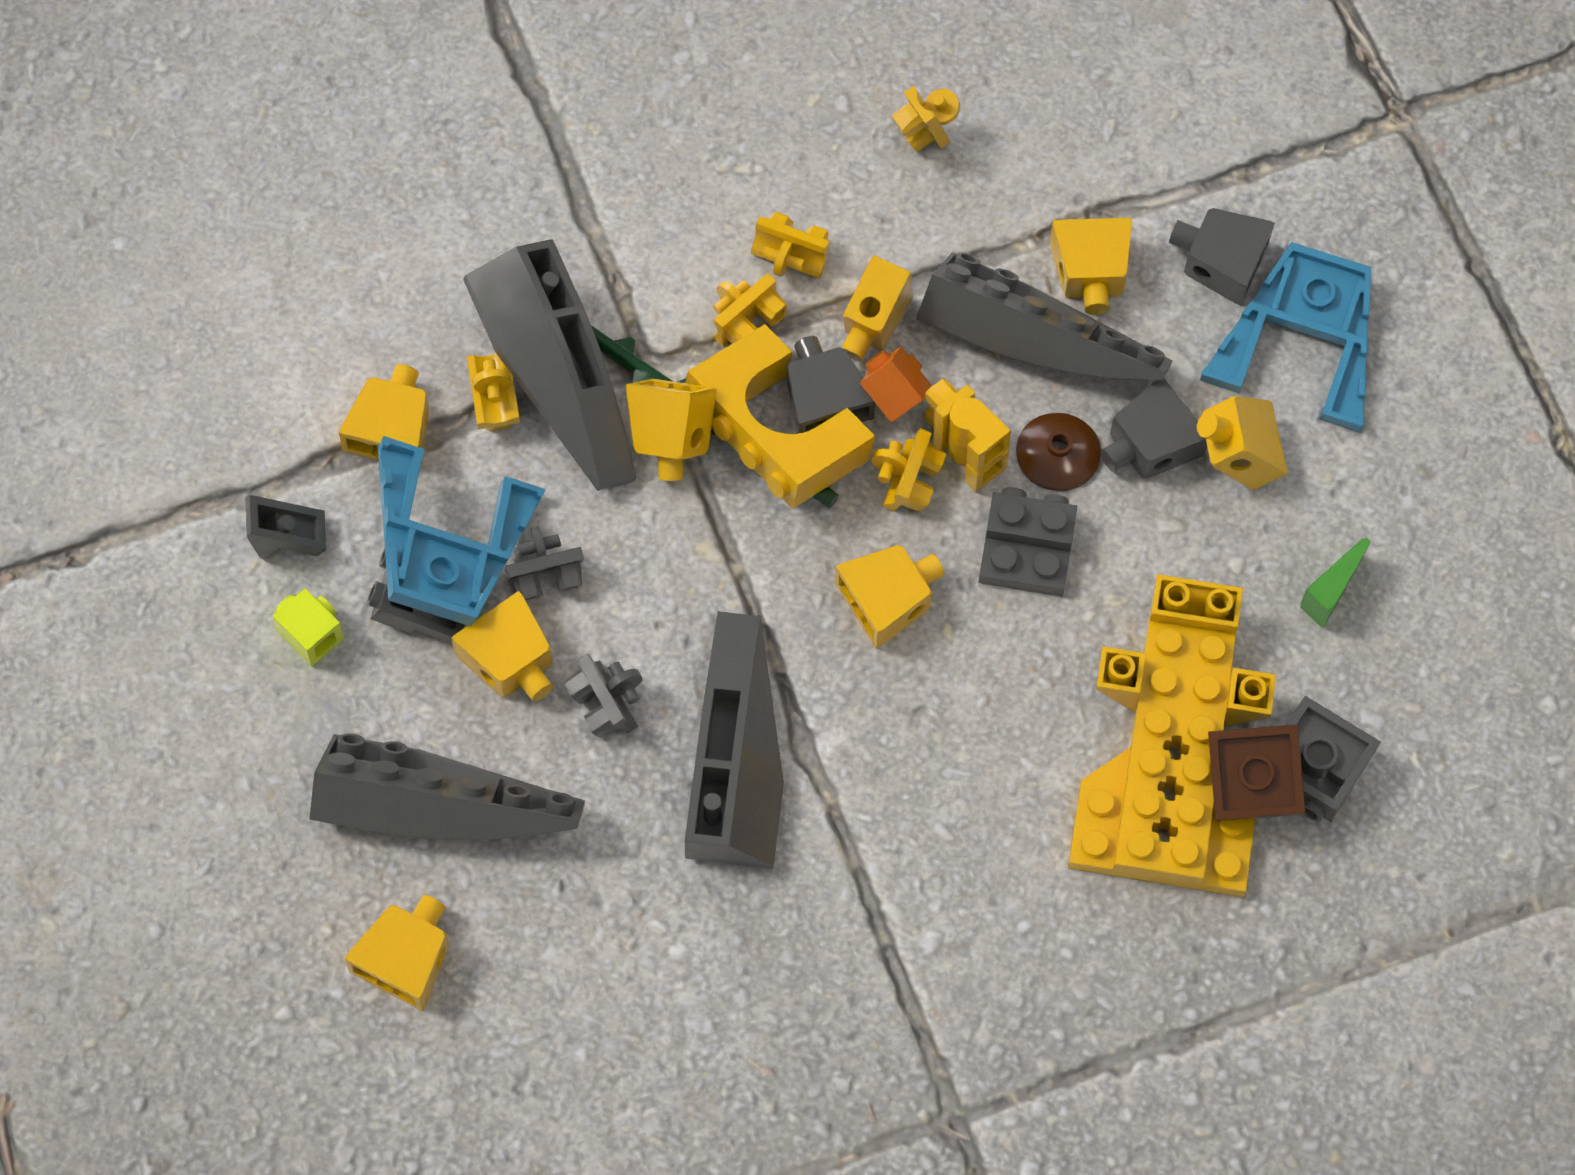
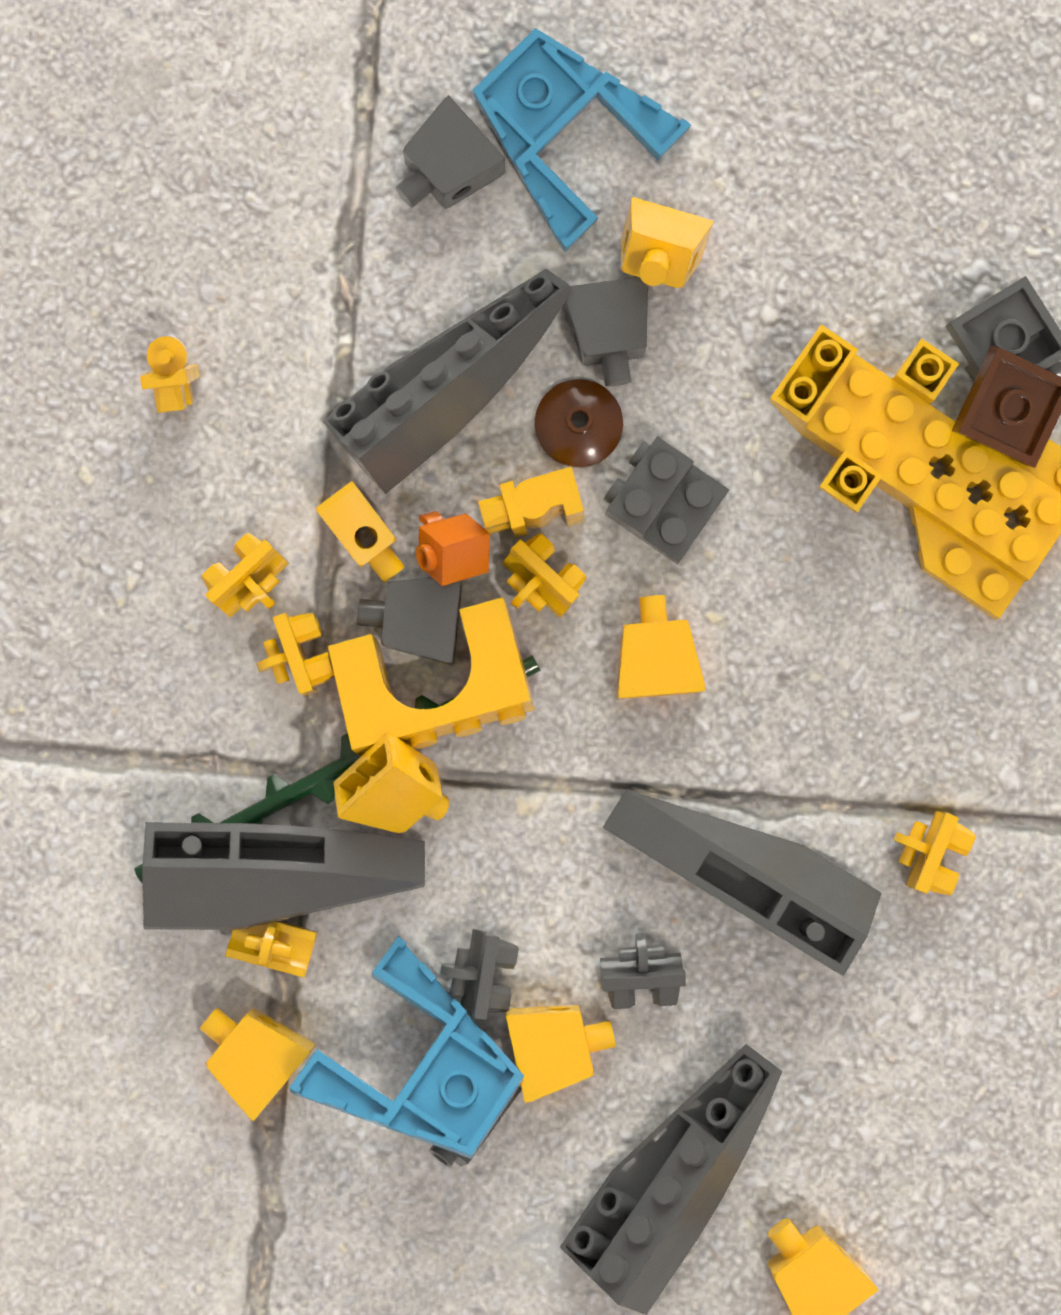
camera: 65 degrees left, 20 degrees up
(284, 526) = (327, 1214): dark grey slope -> none
(308, 625) = (440, 1230): neon yellow brick -> none
(830, 886) = (941, 835): none -> yellow hips
(1091, 259) = (398, 290): yellow torso -> none
(1325, 593) = (843, 239): bright green slope -> none

